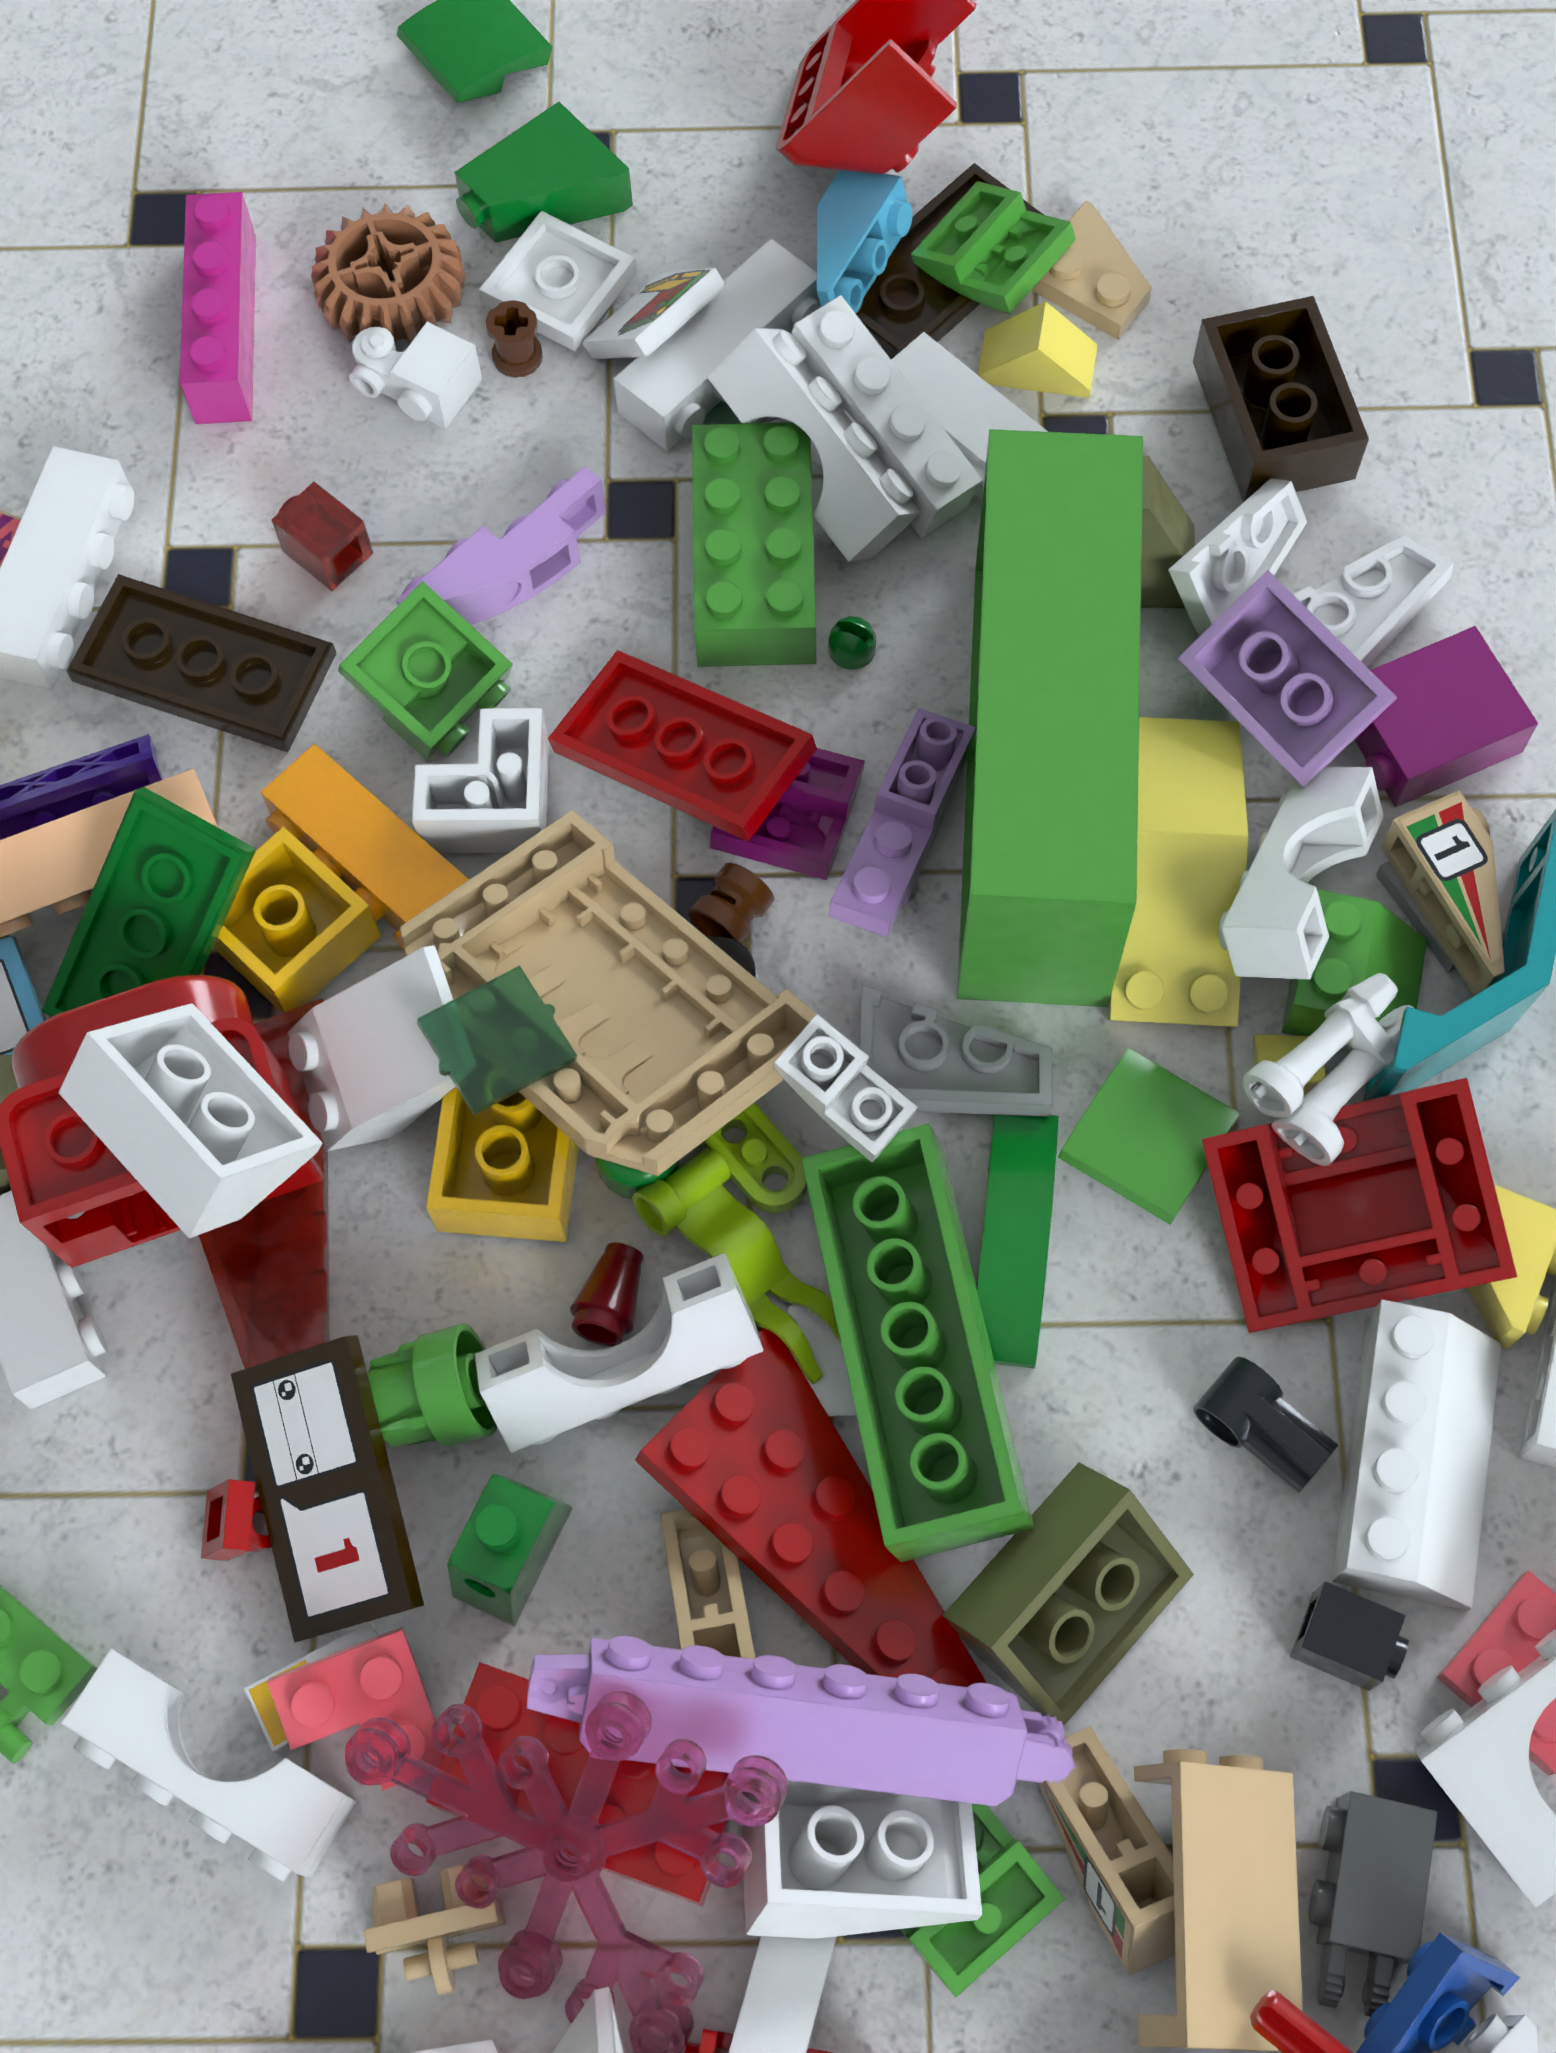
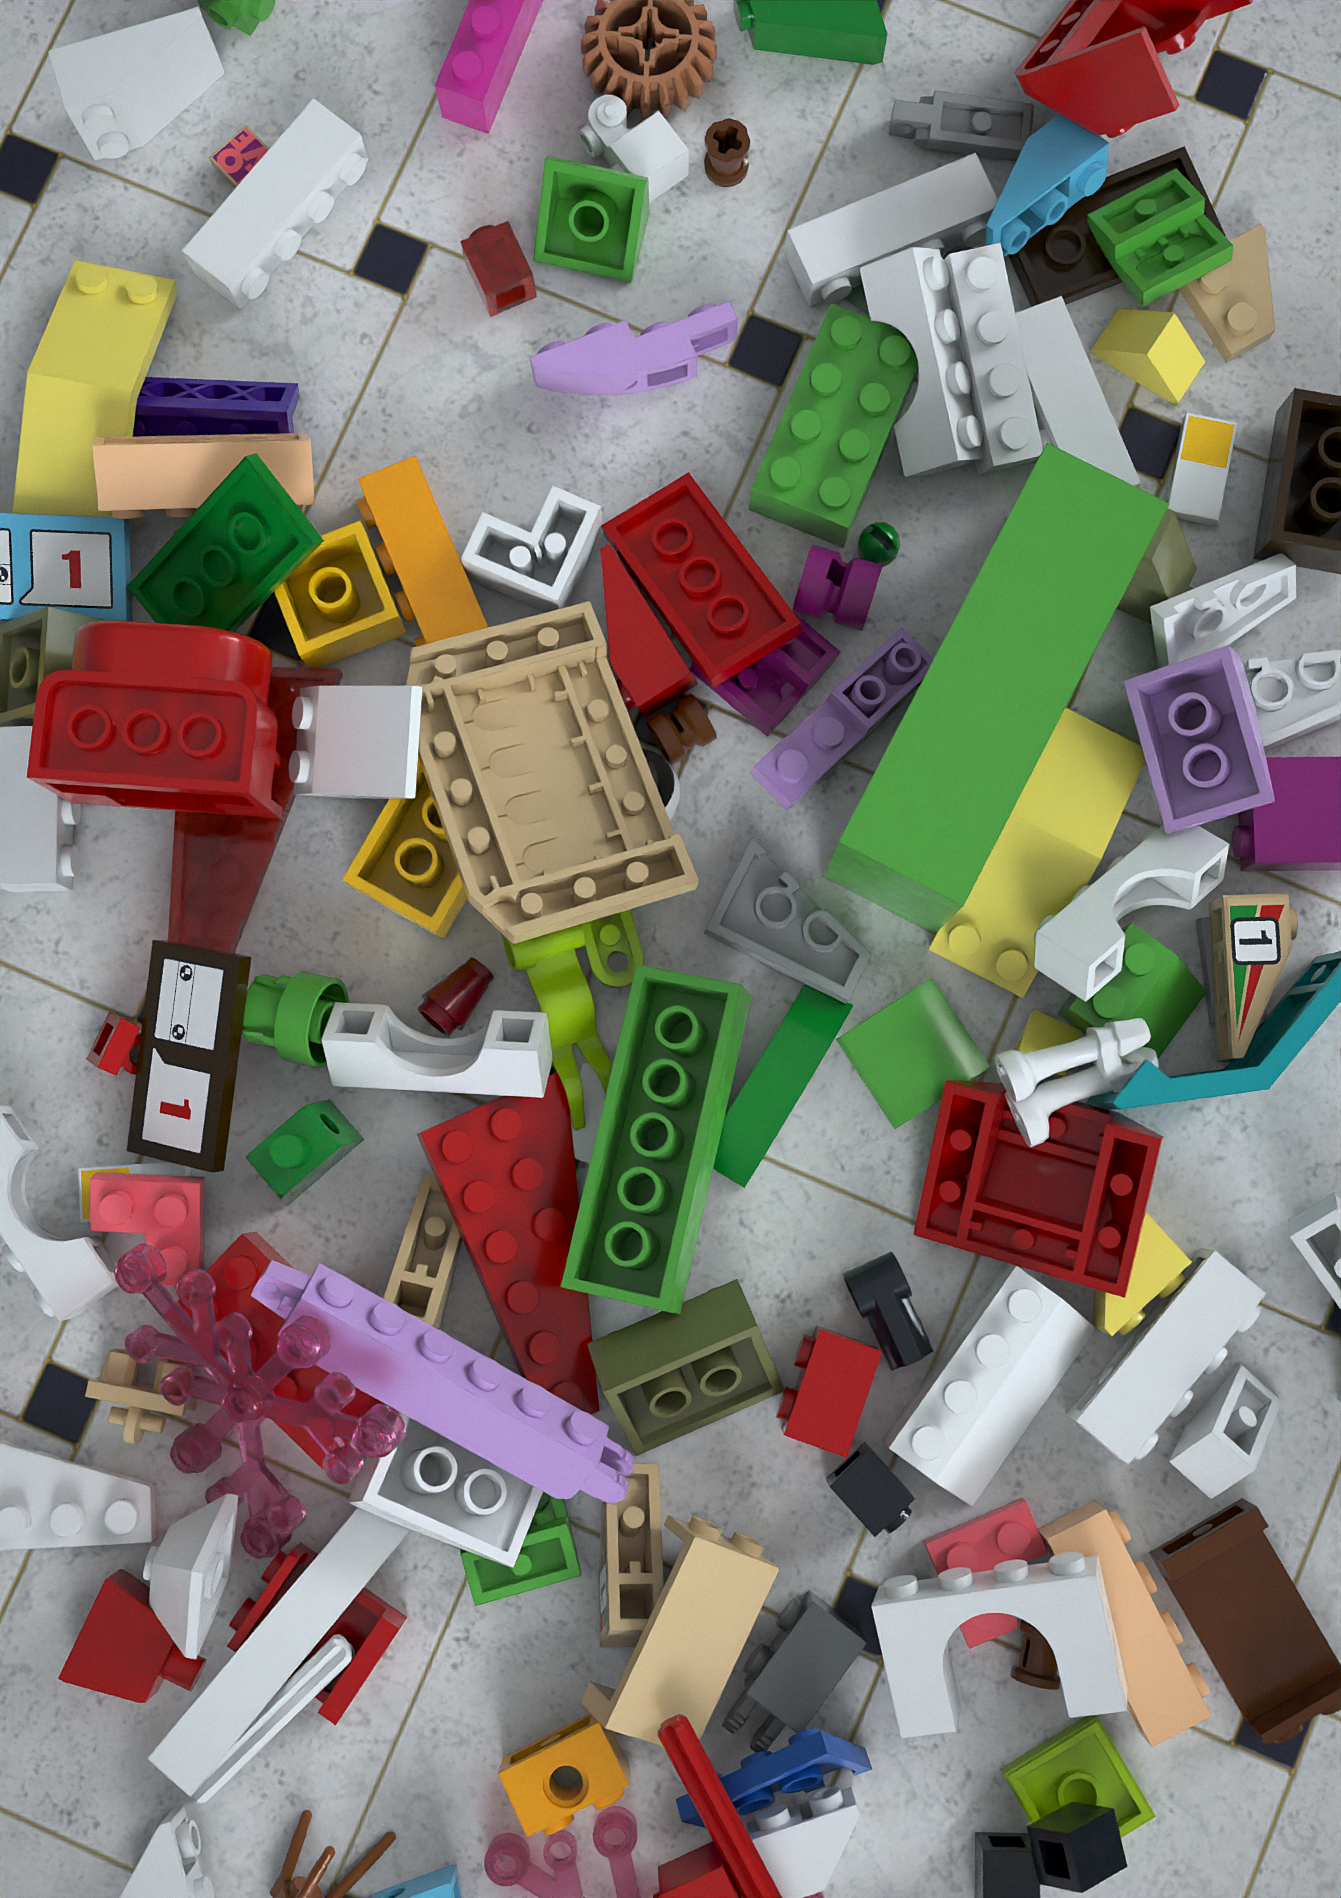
camera: 25 degrees right, 15 degrees up
(187, 1116) = (175, 754): white slope -> none
(202, 662) = (363, 338): dark brown tile -> none
(400, 449) = (591, 218): none -> bright green slope
(428, 672) = (529, 430): bright green plate -> none
(496, 1040) = (437, 784): clear green piece -> none
(560, 277) = (788, 111): white plate -> none
(651, 839) = (639, 647): none -> red slope
(654, 314) = (848, 181): white tile -> none
(744, 224) = (964, 124): none -> light grey hinge
(832, 694) = (837, 587): none -> magenta wheel
(842, 1089) = (686, 933): white slope -> none
(1146, 415) = (1201, 468): none -> white tile
(1244, 1544) = (829, 1390): none -> red brick

